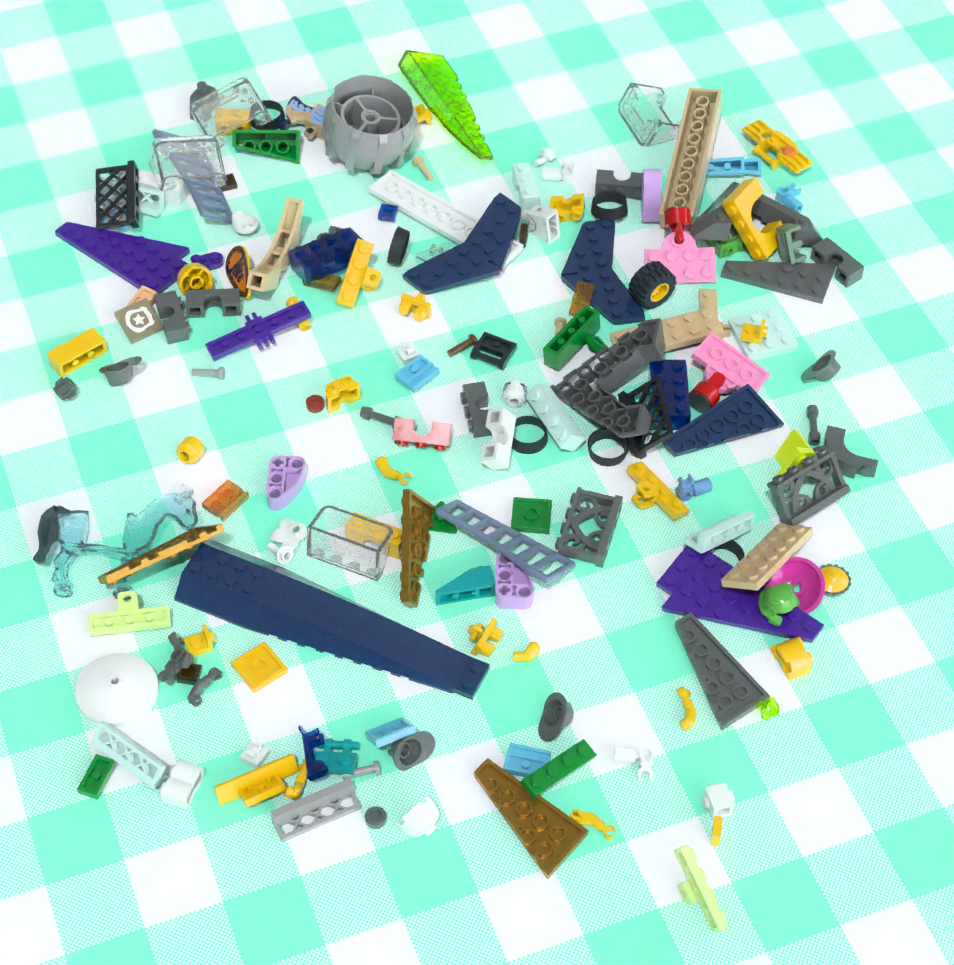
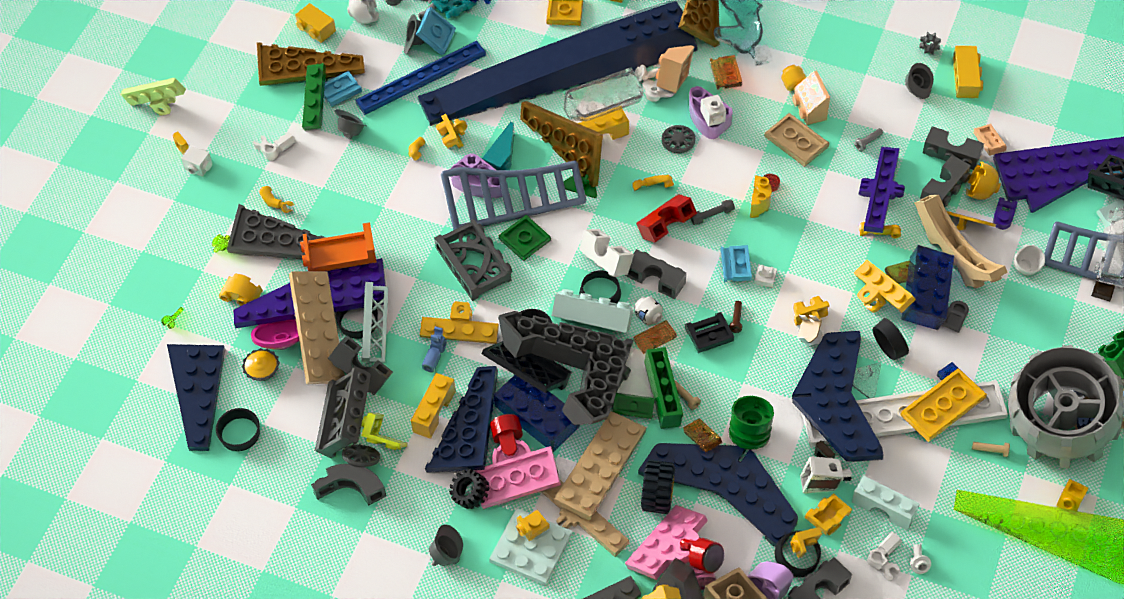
camera: 135 degrees right, 5 degrees up
(138, 320) = (967, 124): tile -> none
(207, 418) = (812, 99): none -> light nougat slope
(252, 415) = (796, 139): none -> tan tile
(264, 517) = (674, 67): none -> light nougat slope
(292, 455) = (713, 110): none -> white brick
(328, 488) = (678, 139): none -> dark grey wheel
(420, 198) = (943, 405): none -> yellow tile
(435, 294) = (810, 330): none -> piece
(447, 715) = (420, 77): none -> blue tile
(477, 844) = (315, 23): none -> yellow brick
(531, 377) = (655, 336): none -> clear orange plate
(547, 273) = (751, 422): none -> green wheel
(591, 819) = (269, 92): yellow arm -> none
(603, 194) = (807, 537): none -> yellow bracket
(685, 606) = (339, 250): none -> orange panel
(722, 454) = (427, 414): none -> yellow arch
(764, 507) = (346, 357): none -> dark grey arch
(777, 380) = (461, 484): none -> black tyre
(777, 600) = (276, 298): bright green helmet -> none
(812, 415) = (391, 482): dark grey bar -> none
(868, 683) = (167, 318): none -> clear neon green hand
(890, 616) = (197, 383): none -> dark blue wing
(892, 538) = (231, 415): none -> black tyre

